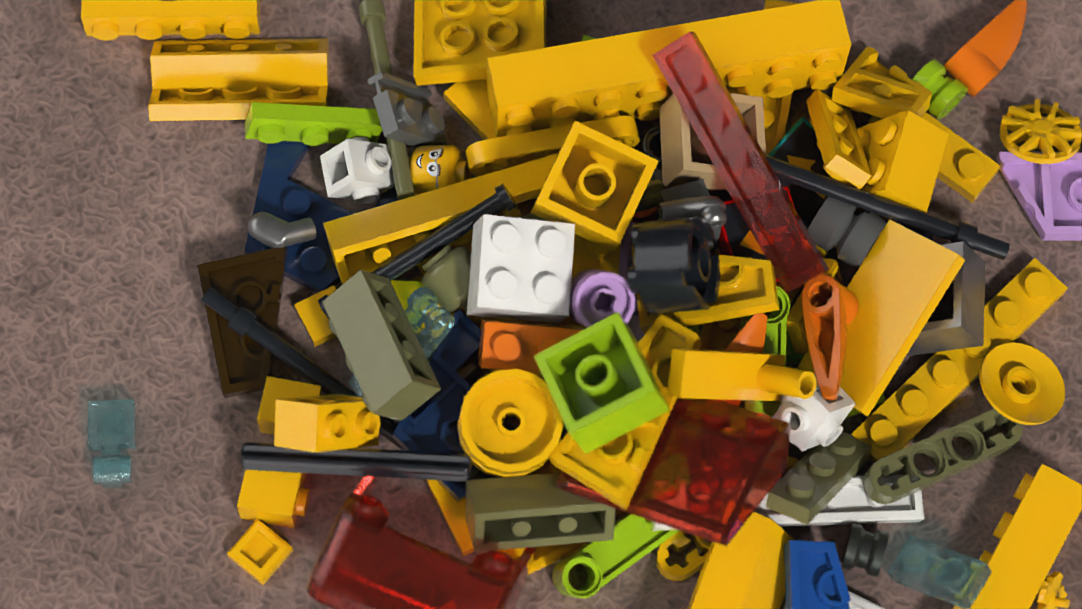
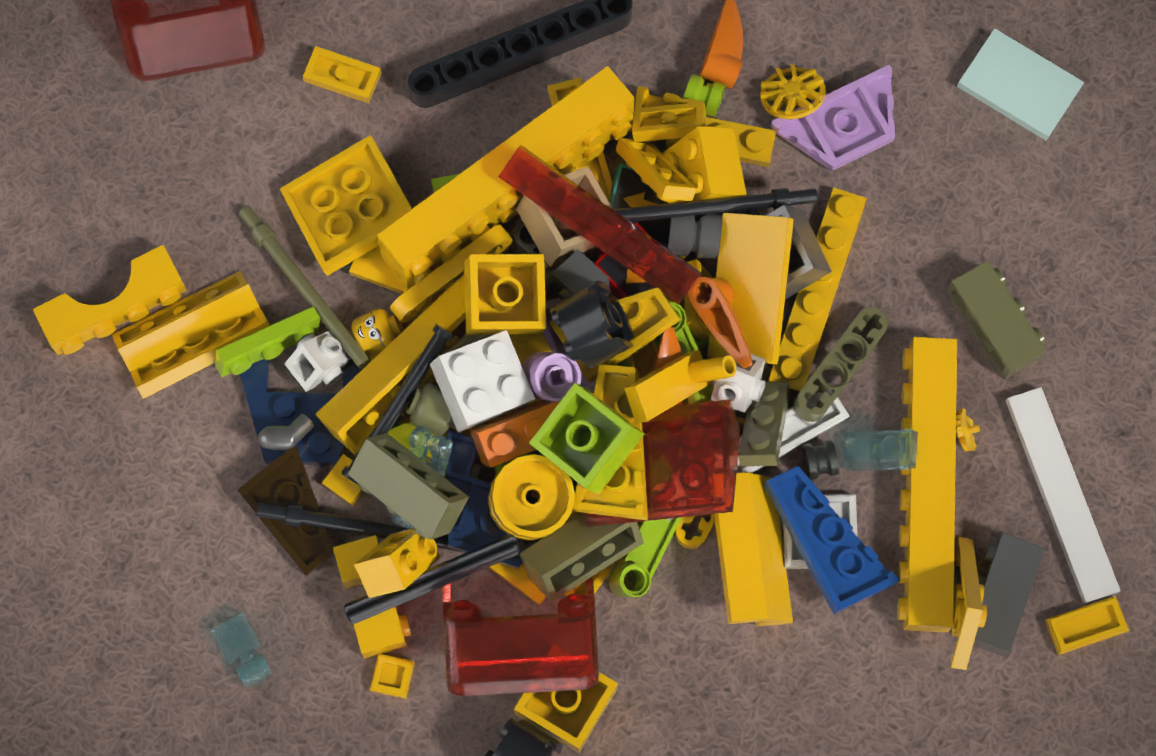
camera: 25 degrees left, 5 degrees up
(406, 111) = (331, 301): dark grey plate -> none
(709, 207) = (583, 276): flat silver arm -> none
(1032, 374) = (874, 274): yellow dish -> none

